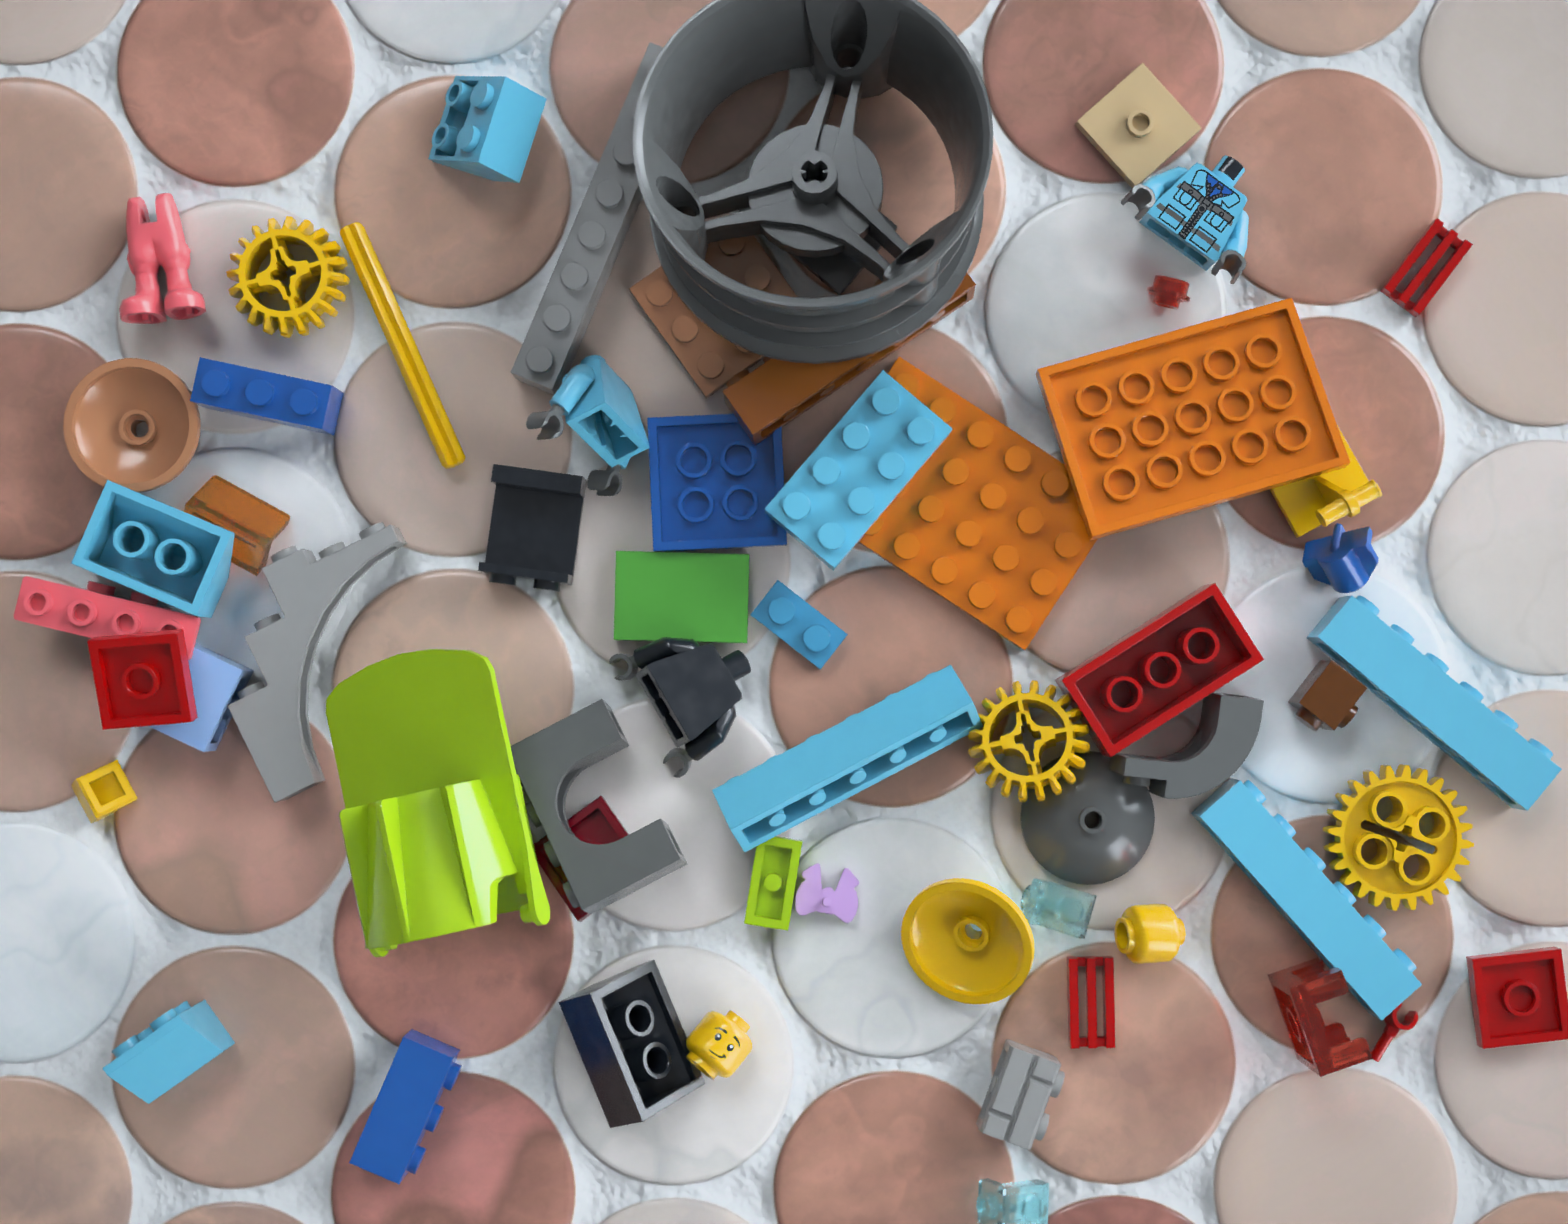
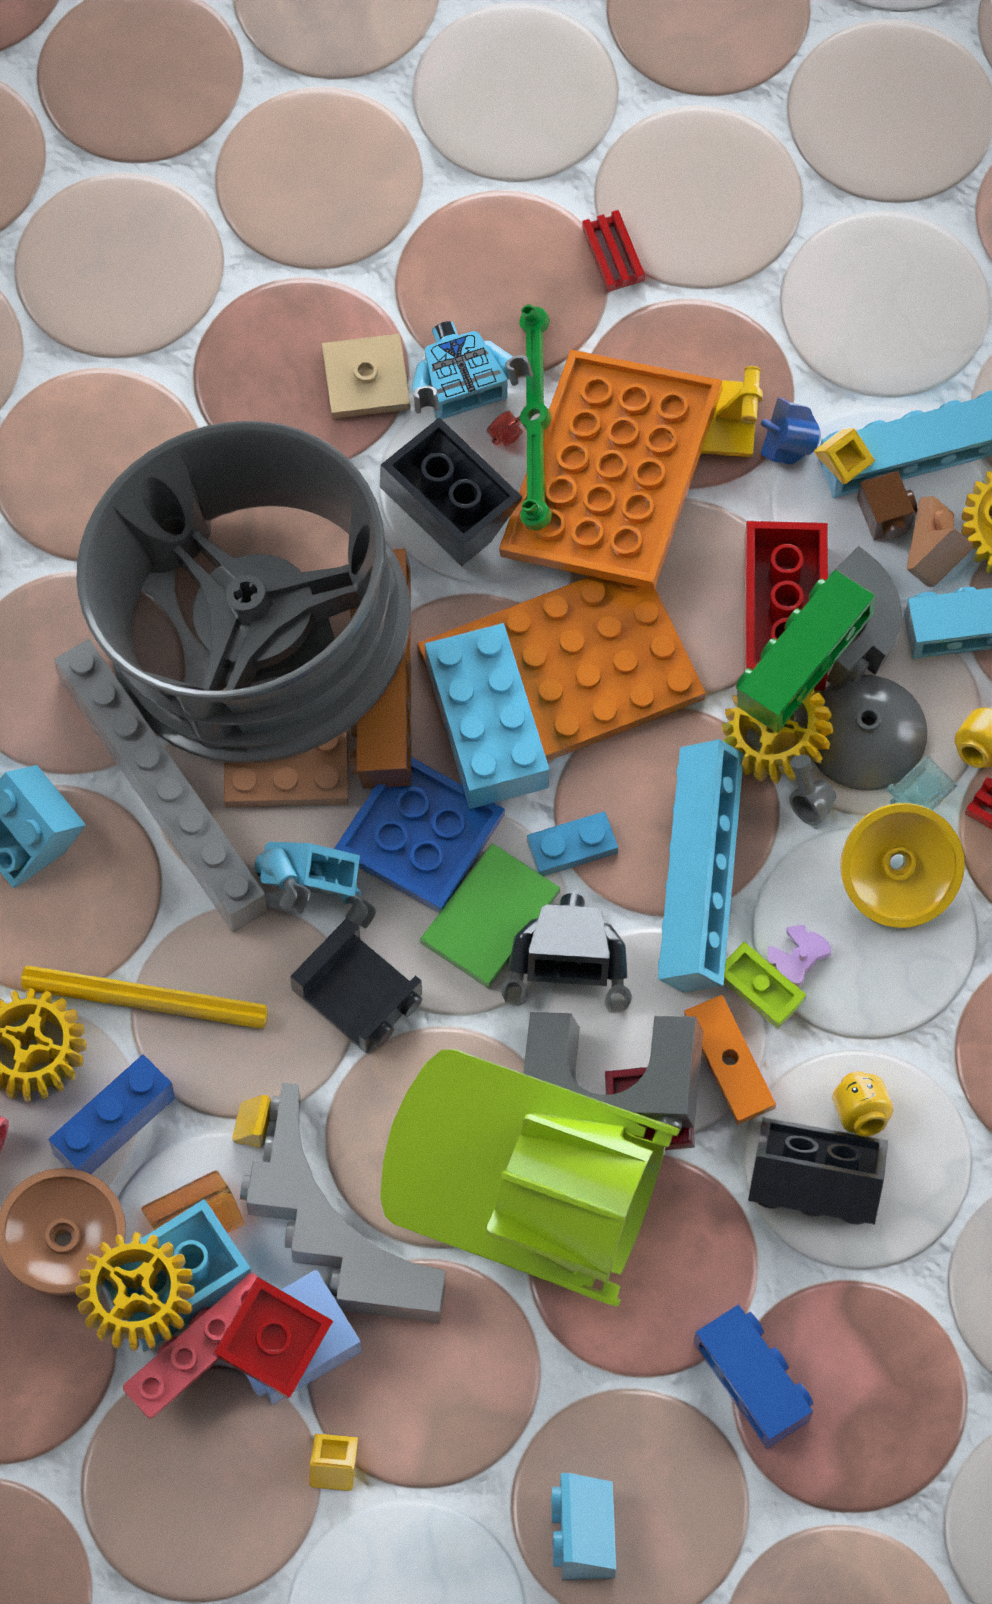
camera: 60 degrees left, 20 degrees down
(98, 550) = (124, 1306): none -> yellow gear
(350, 519) = (252, 1121): none -> yellow slope
(670, 922) = (739, 1083): none -> orange tile
(985, 813) = (812, 798): none -> dark grey bar
(1066, 284) = (449, 491): none -> black slope
(1092, 380) = (535, 512): none -> green piece
(1112, 727) = (804, 650): none -> green brick
(1311, 767) = (935, 543): none -> nougat slope
(1349, 628) = (845, 455): none -> yellow slope

